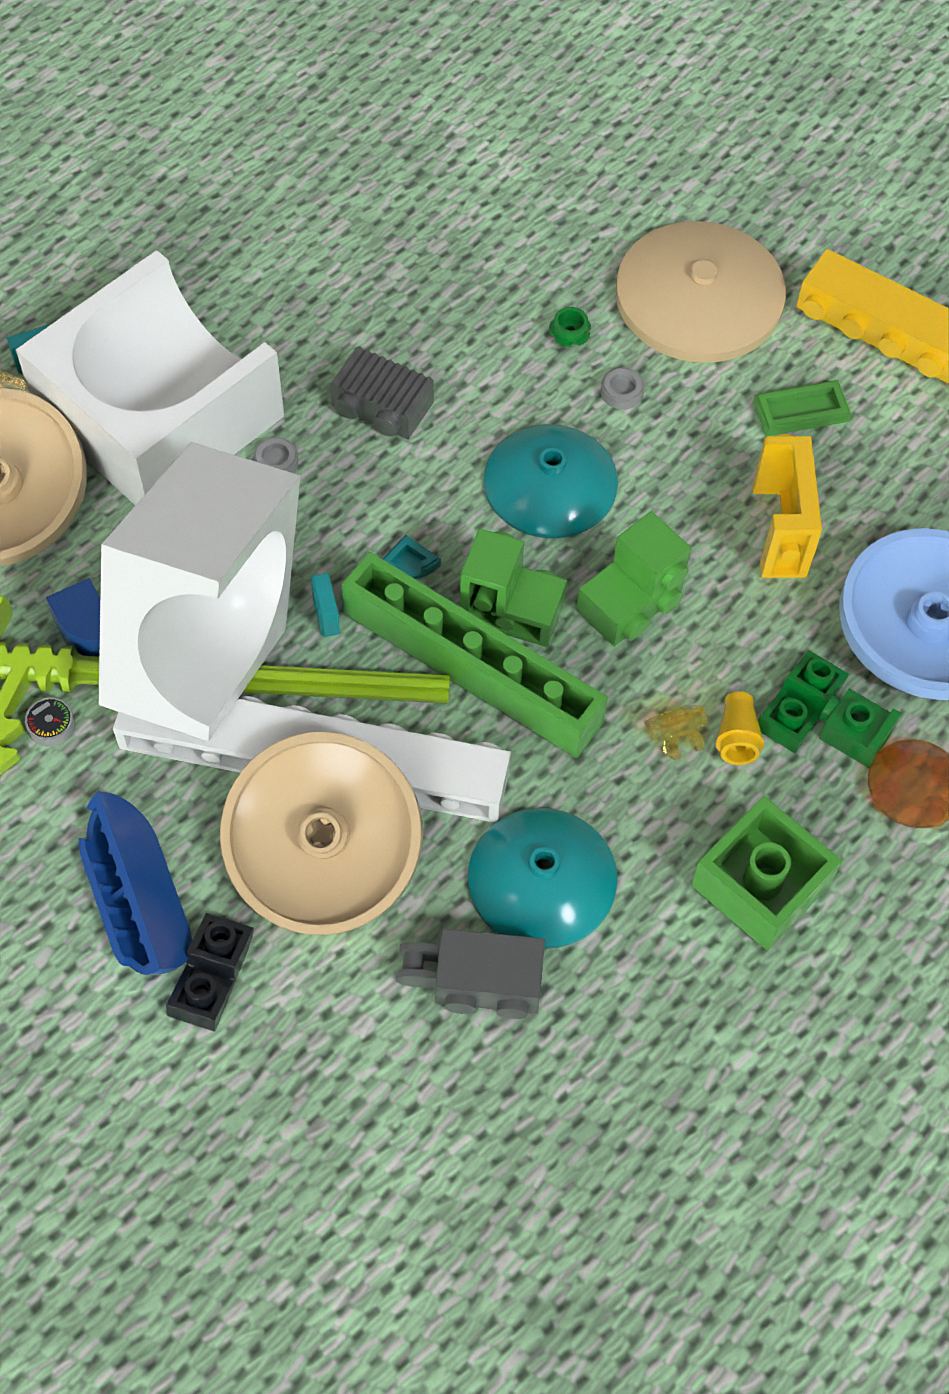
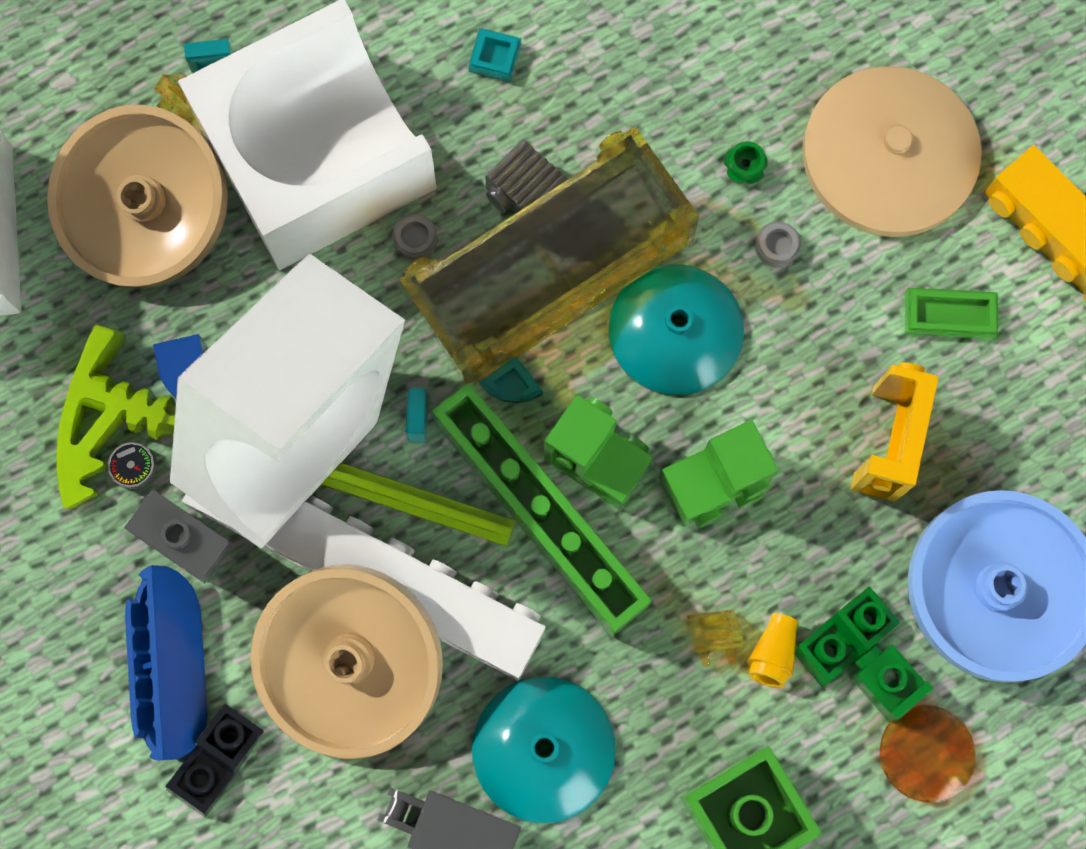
camera: 15 degrees right, 15 degrees up
(118, 763) = (178, 536): none -> dark grey brick
(306, 293) = (494, 54): none -> teal tile
(420, 433) = (553, 258): none -> clear smoke windscreen

